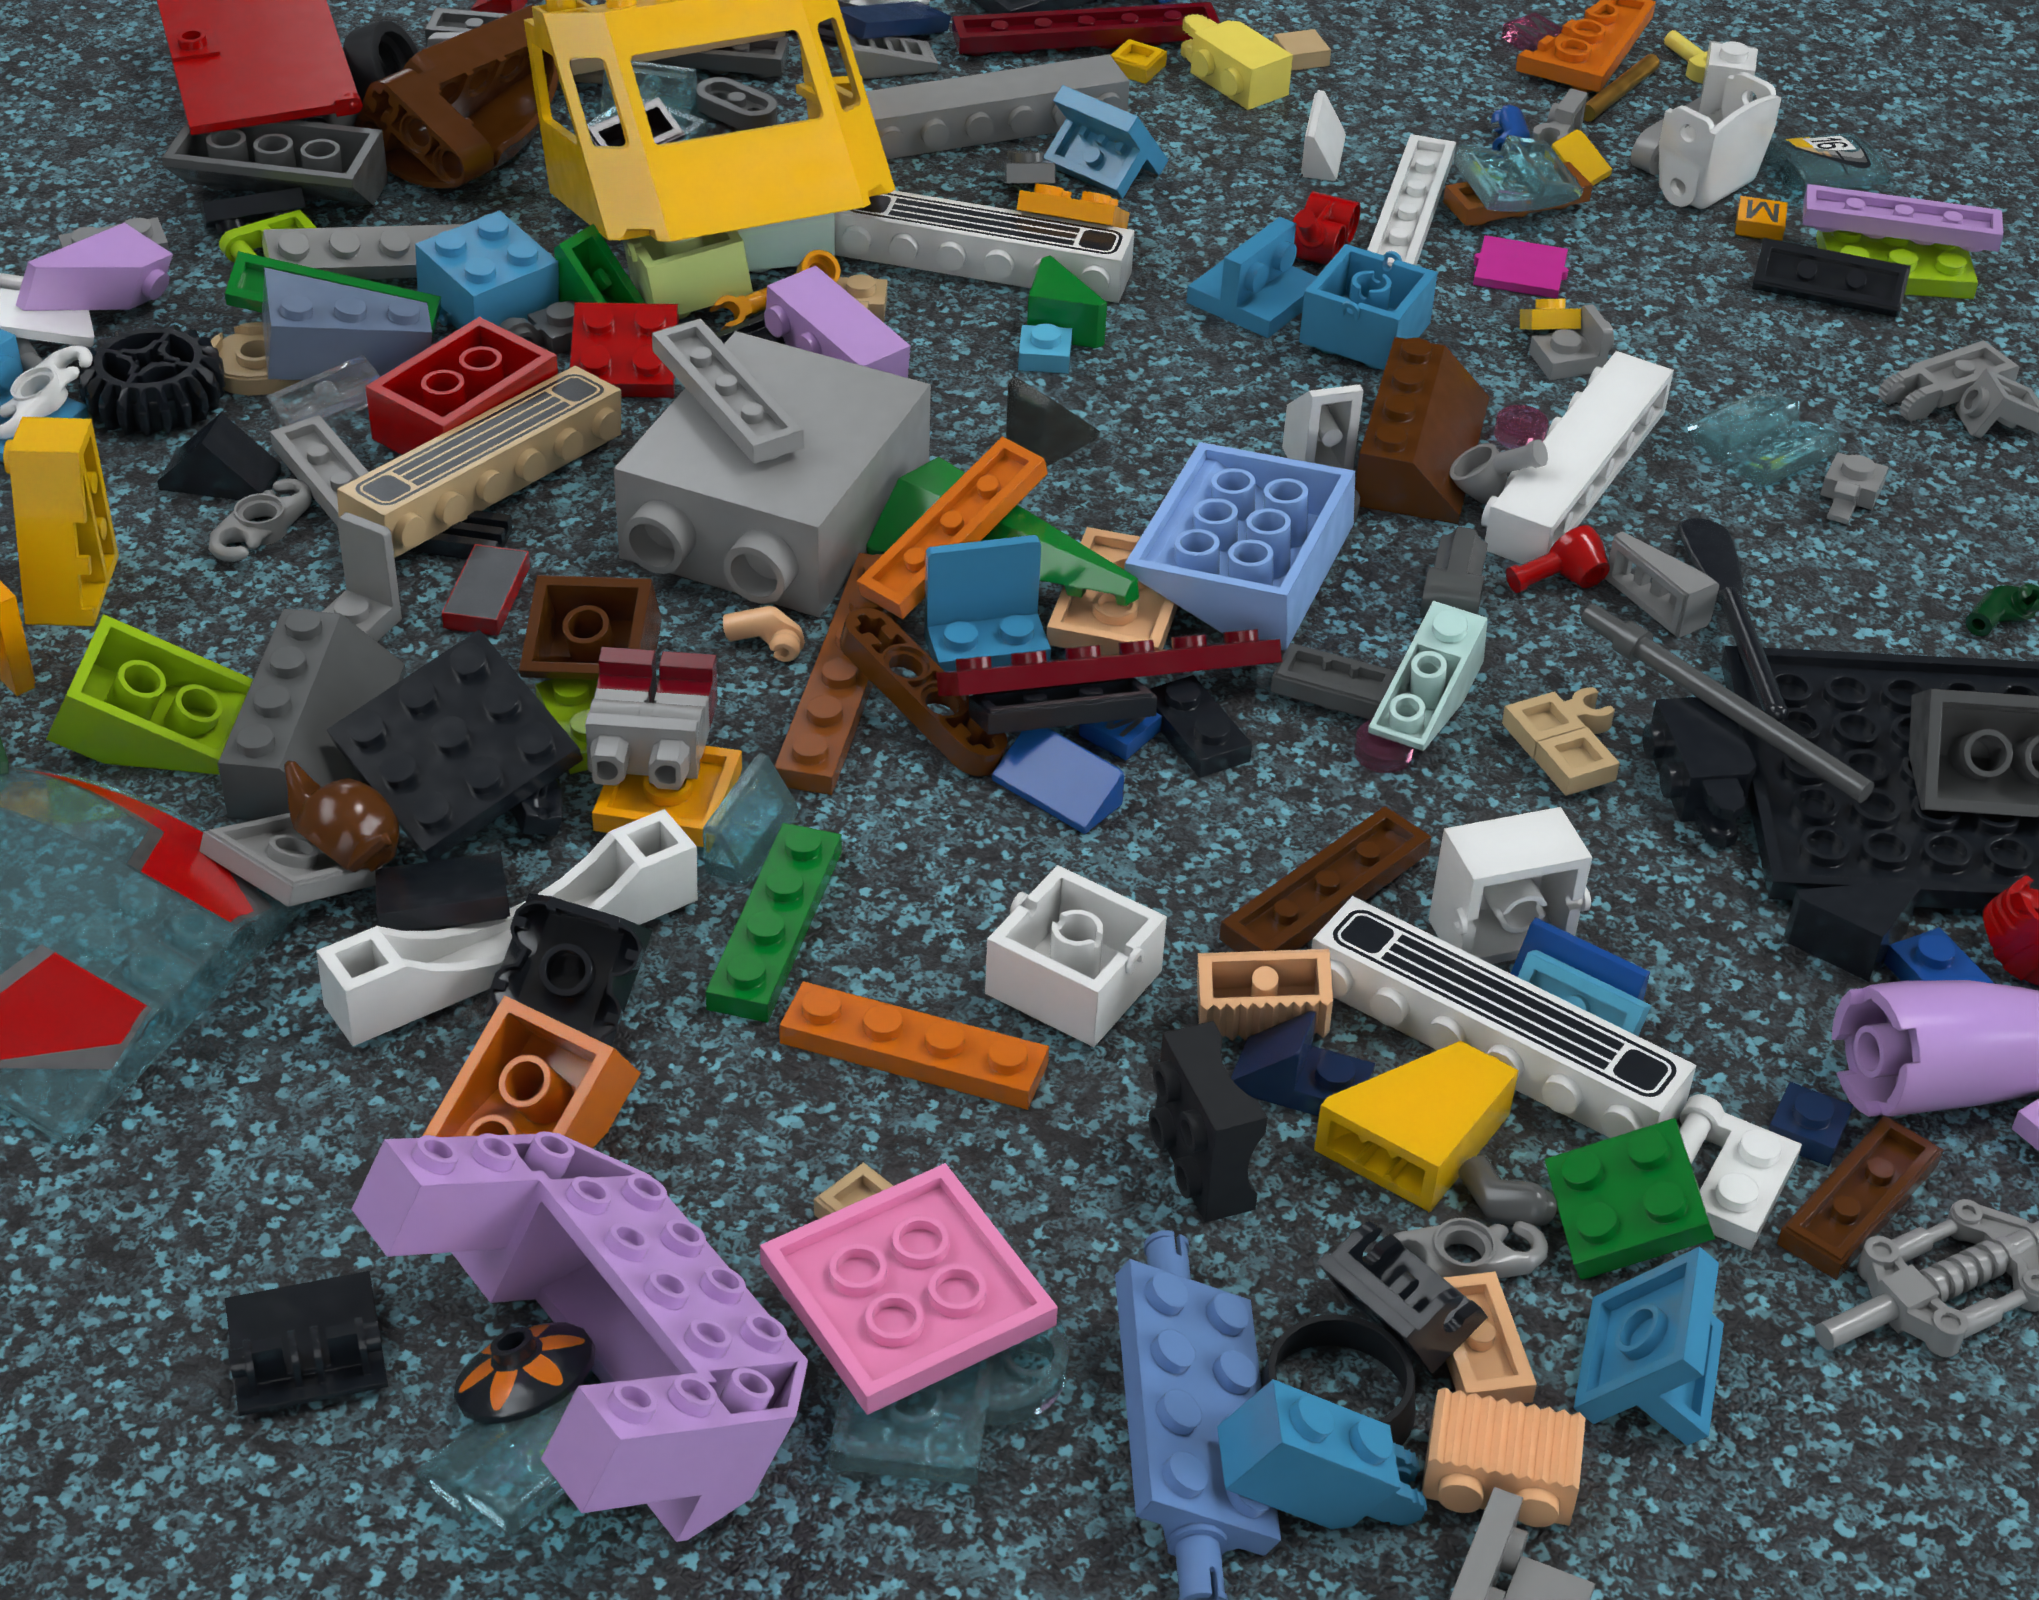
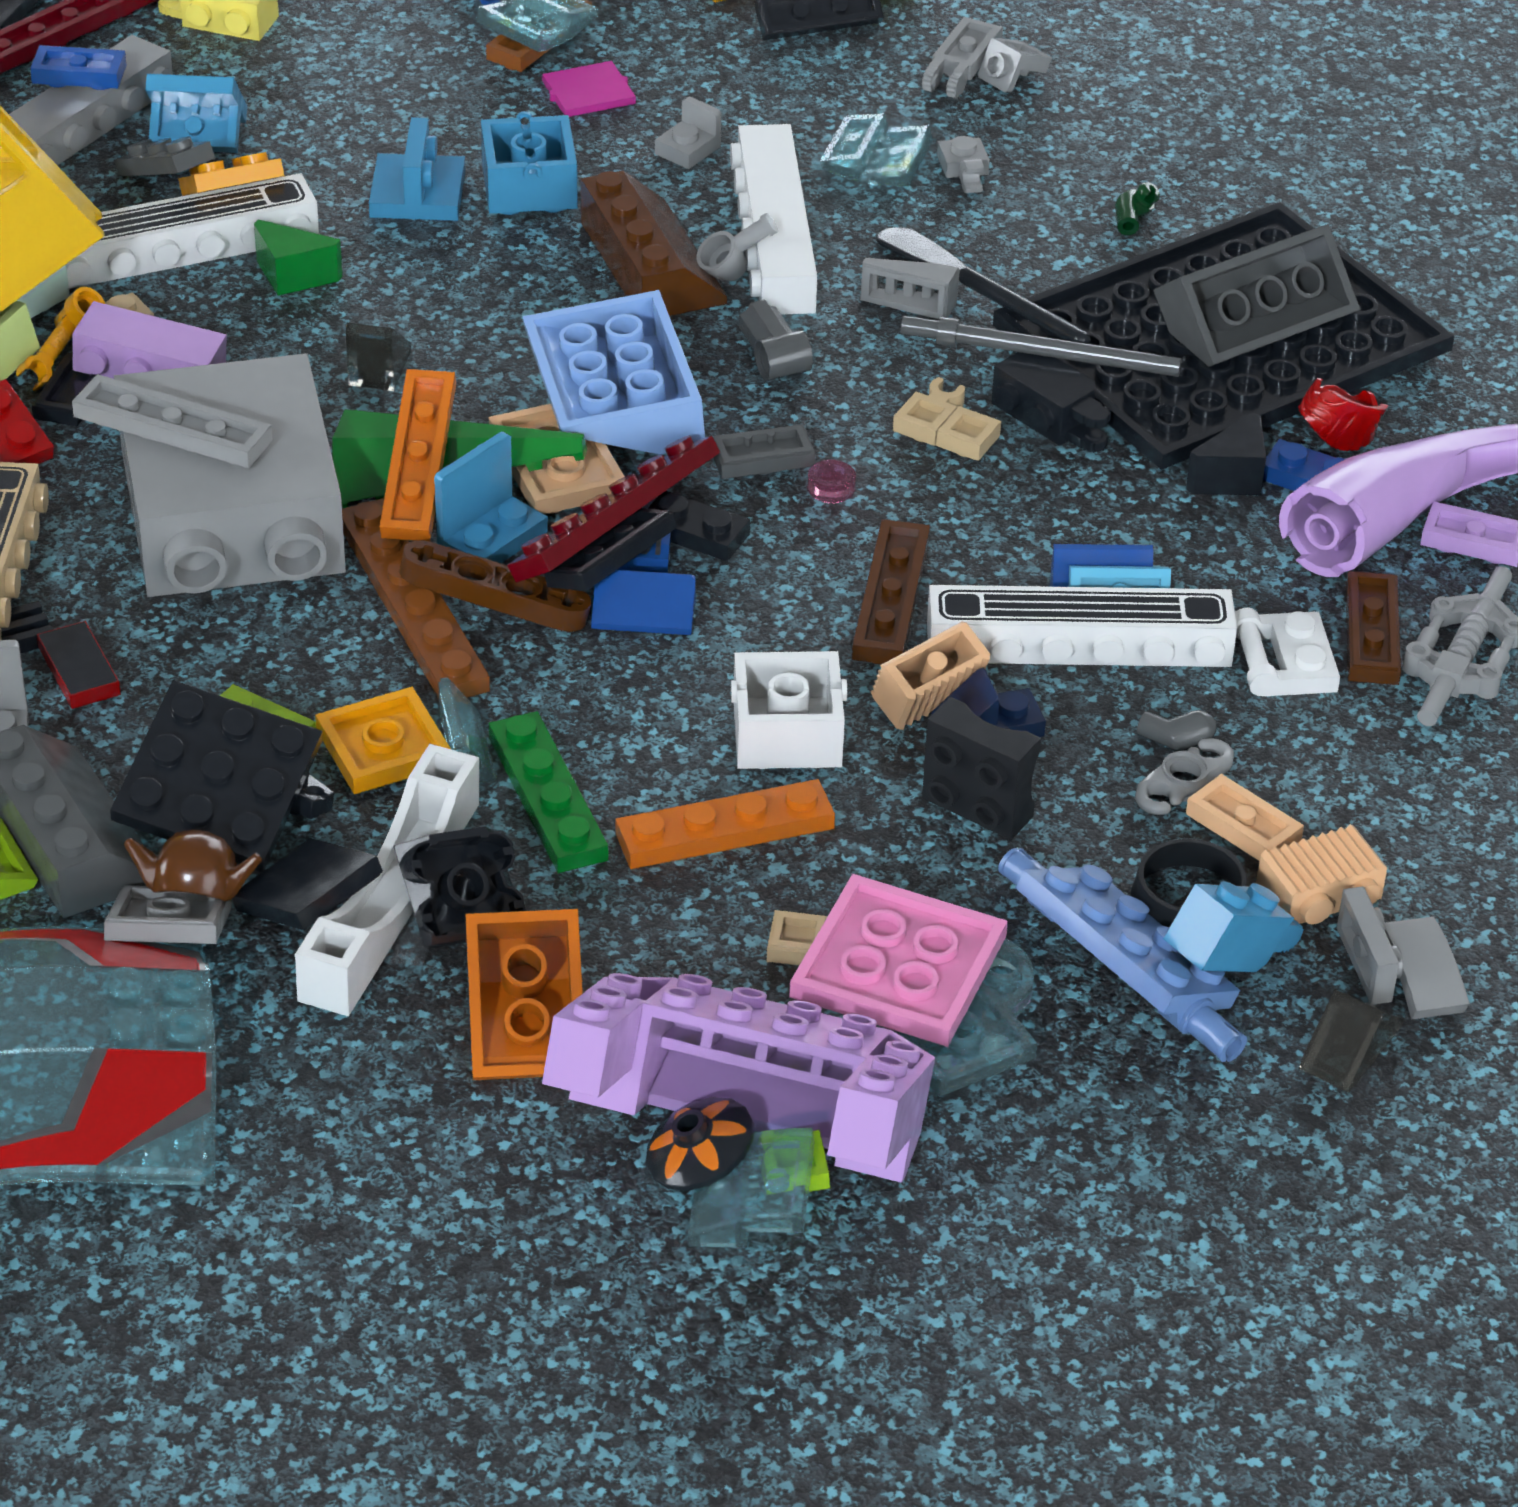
camera: 35 degrees left, 0 degrees up
(304, 1343) = (533, 1206): black hinge -> none
(580, 616) = (219, 647): reddish brown slope -> none
(649, 727) = (336, 688): light grey hips -> none
(770, 625) = (330, 592): light nougat arm -> none
(1020, 61) = (78, 67): none -> blue plate
(1045, 348) = (306, 297): medium azure plate -> none
(1139, 60) = (138, 25): yellow tile -> none
(1322, 141) = (349, 45): white slope -> none
(1324, 426) = (589, 270): white slope -> none
(1325, 227) = (430, 103): red beam -> none
(1402, 1295) = (1180, 813): black hinge -> none
(1413, 198) = (468, 65): white plate -> none
(1418, 1121) = (1093, 709): yellow slope -> none
(1432, 677) = (831, 415): light aqua slope -> none
(1503, 876) = (1017, 525): white brick -> none
(1519, 425) = (707, 213): clear pink tile -> none
(1550, 315) = (655, 118): yellow plate -> none
(1575, 555) = (839, 292): red bar -> none
(1628, 1199) = (1256, 691): green plate -> none
(1655, 1348) = (1350, 765): dark azure bracket -> none
(1811, 1120) = (1308, 594): dark blue plate -> none

